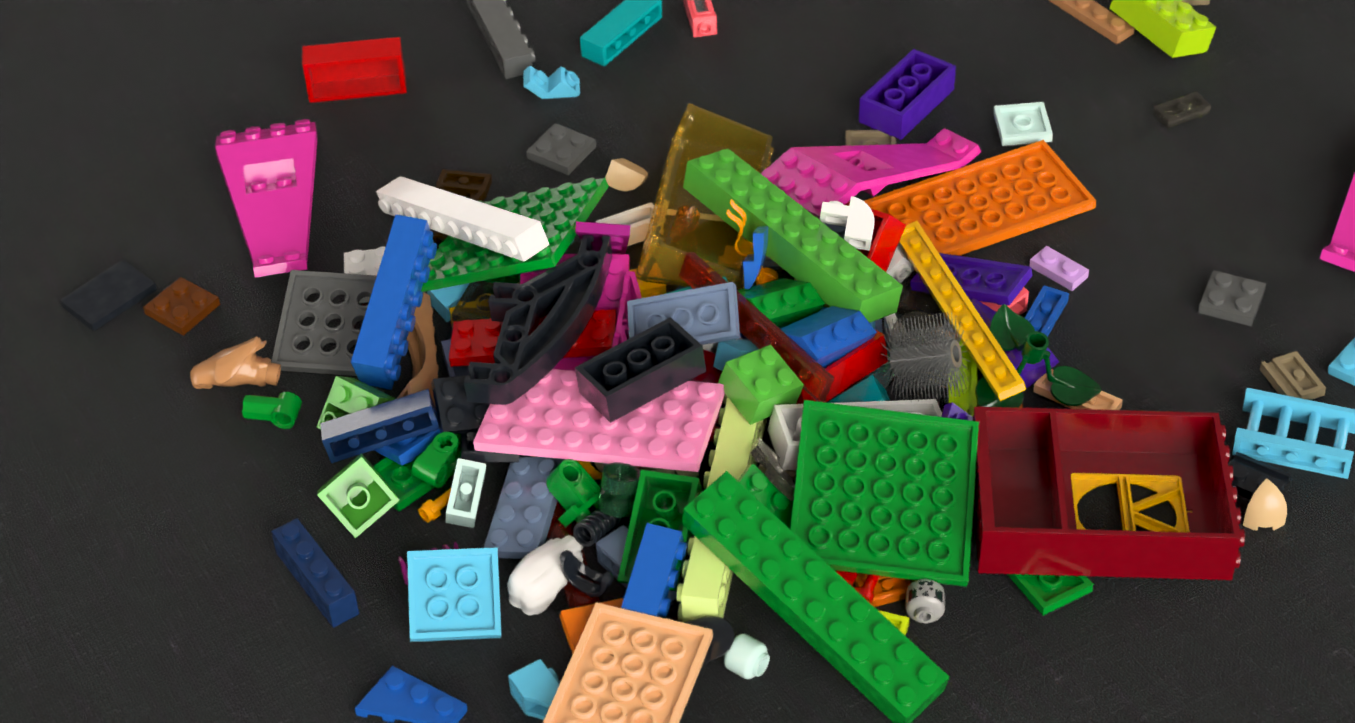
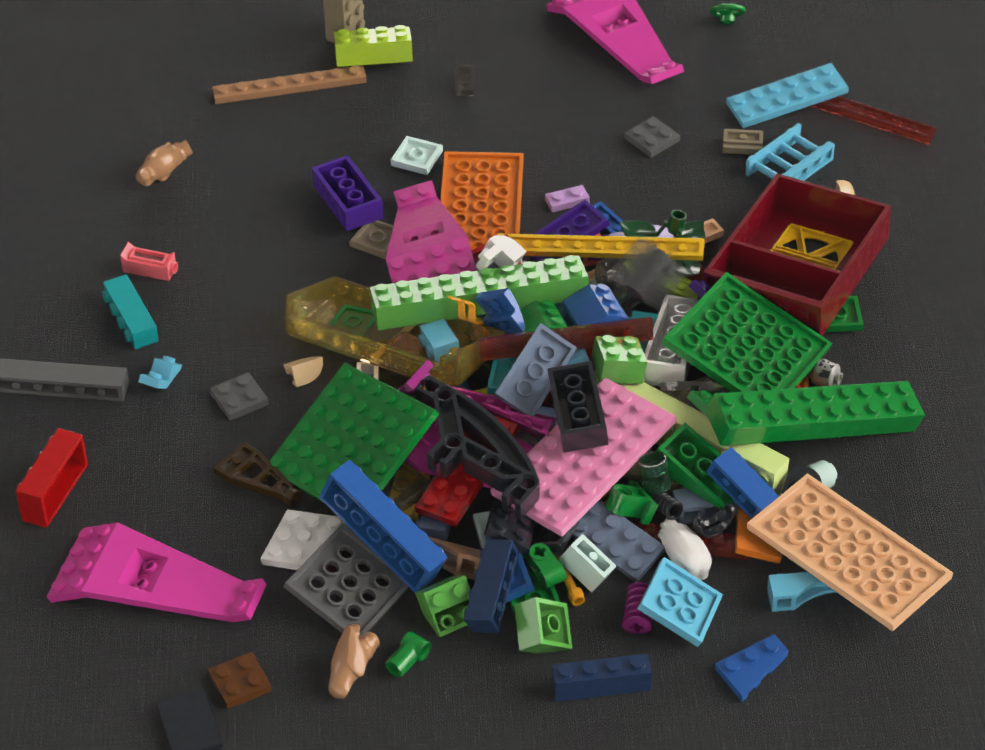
camera: 65 degrees left, 0 degrees up
(464, 218) = (317, 458): white brick -> none
(706, 237) = (437, 339): none -> medium azure brick

